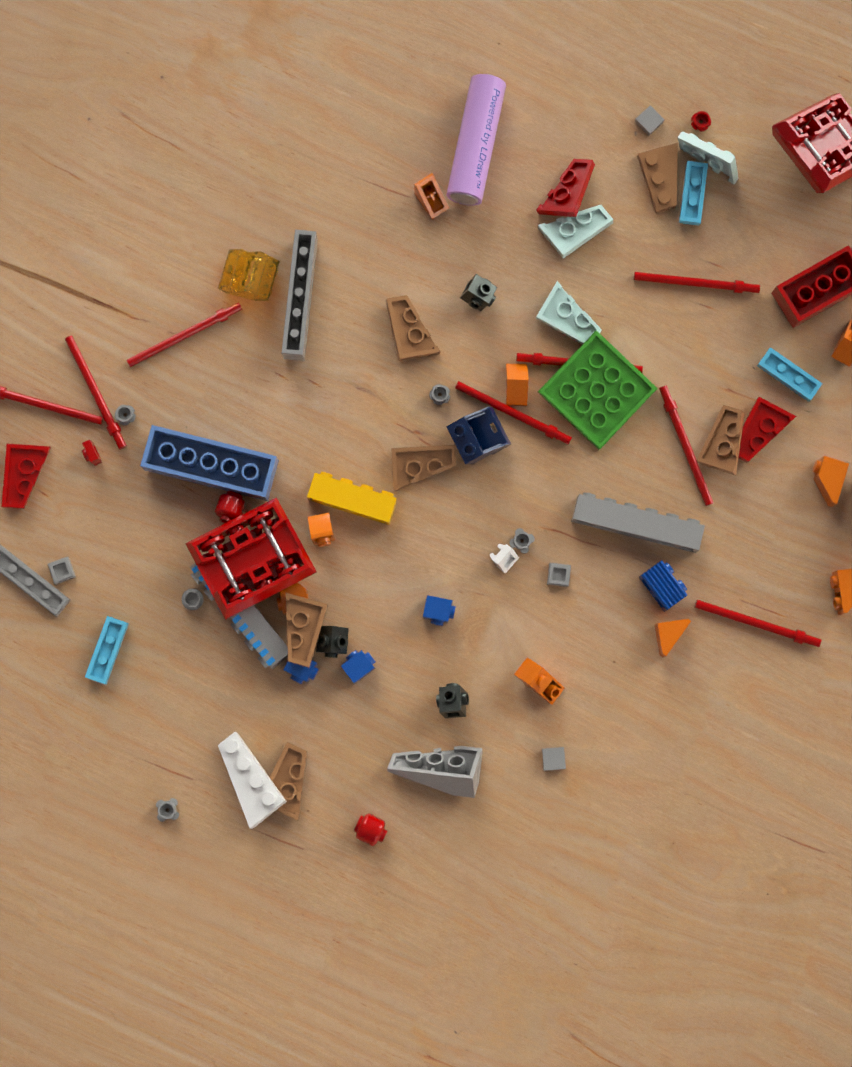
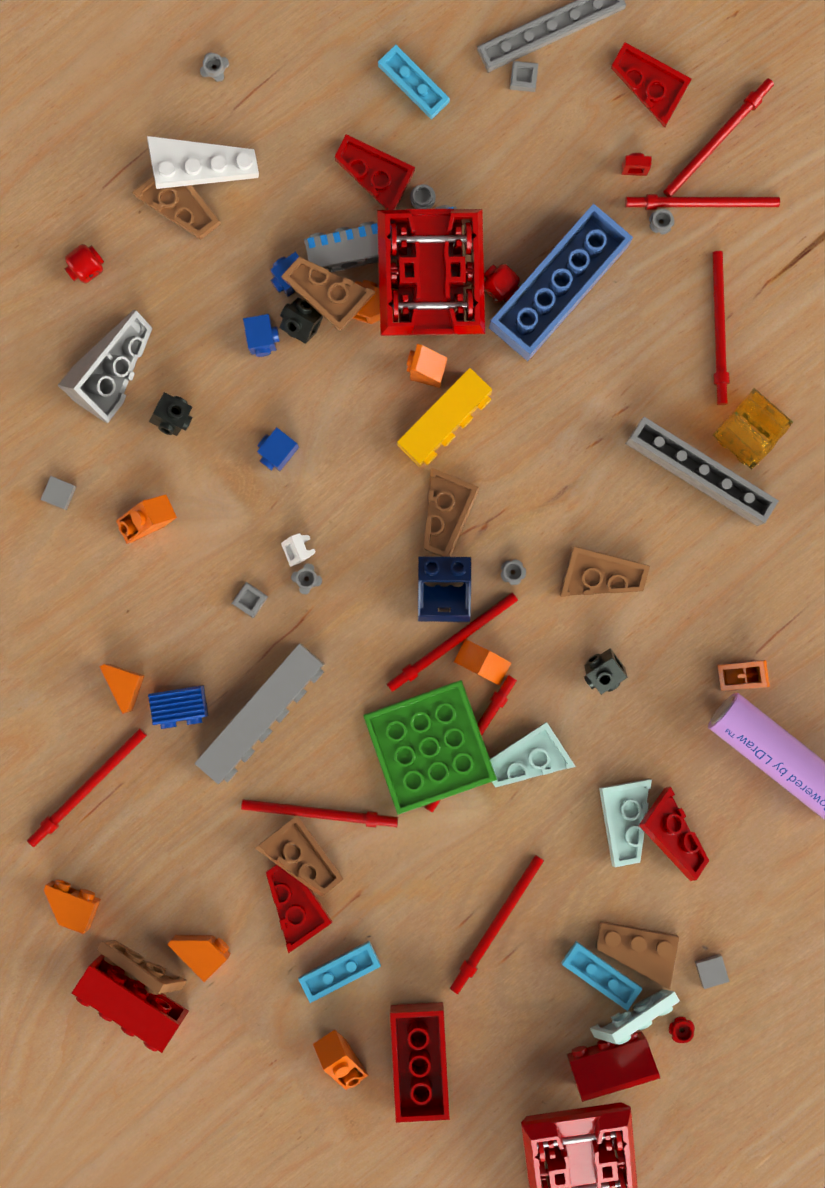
camera: 120 degrees right, 5 degrees up
(190, 642) = (375, 171): none -> red wing
(753, 154) = (612, 1066): none -> red slope

